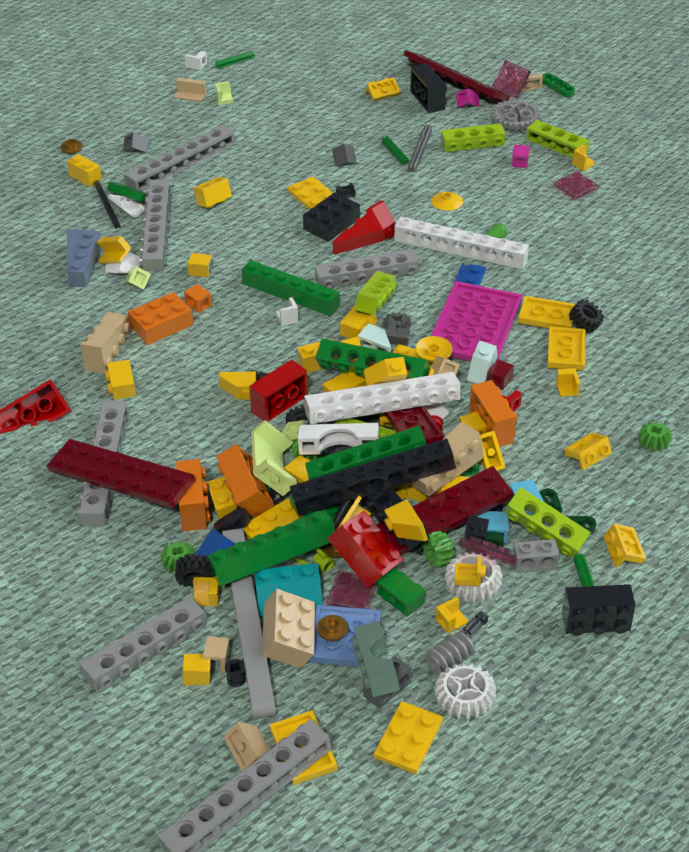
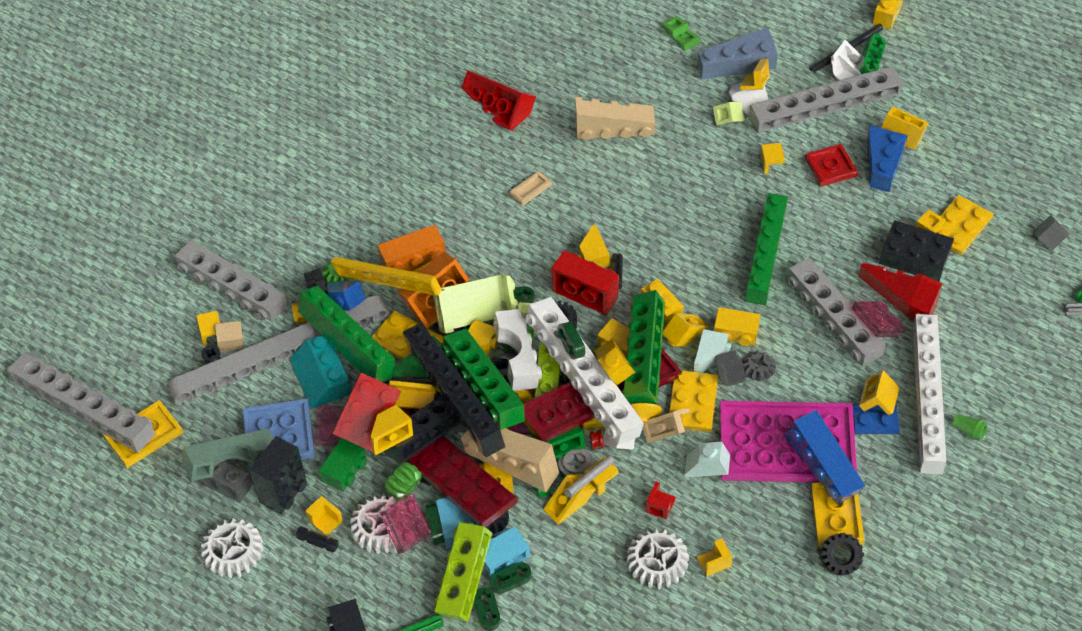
camera: 75 degrees right, 10 degrees up
(22, 286) = (680, 34): none -> bright green slope
(109, 435) = (445, 177): light grey brick -> none
(120, 379) = (564, 152): yellow brick -> none
(121, 473) = (413, 190): dark red plate -> none
(135, 142) = (965, 34): panel -> none
(145, 412) = (530, 188): none -> tan tile
(160, 318) = (668, 152): orange brick -> none
(180, 158) = (960, 81): light grey brick -> none
(198, 298) = (715, 173): orange brick -> none
(223, 239) = (831, 165): none -> red plate
(224, 500) = (386, 276): none -> yellow tile
(233, 208) = (884, 156): none -> blue wedge
(234, 520) = (391, 300): black beam -> none
(246, 743) = (139, 393): tan panel -> none
(288, 628) = (264, 380): tan brick -> none
(289, 314) = (724, 259): white panel -> none
(309, 201) = (930, 221): none -> yellow panel
(332, 627) = (276, 416): pearl gold piece -> none
(346, 191) = (978, 252): black bush -> none
(362, 386) = (571, 340): none -> dark green beam
(375, 293) = (782, 326): lime brick -> none
(391, 246) = (878, 318): none -> clear pink plate
(408, 737) = (173, 515): yellow plate -> none
(409, 626) = (278, 475): none -> black brick
(433, 345) = (706, 398): yellow dish -> none
(446, 201) = (1021, 369): yellow dish -> none
(449, 652) = (272, 524): light grey piece -> none
(451, 266) = (879, 391): none -> yellow panel
(469, 573) = (363, 511): yellow bracket -> none
(476, 527) = (435, 507): black plate -> none
(483, 423) = (589, 476): none -> light grey bar
(494, 411) = (619, 487): orange brick -> none
(500, 373) = (700, 484): dark red brick -> none
(504, 298) = (824, 457): none -> blue wedge
(536, 556) = (422, 574): light grey brick -> none
(559, 413) = (670, 550): none -> white gear
(566, 348) = (779, 546): yellow plate -> none
(589, 449) = (608, 600): yellow bracket -> none

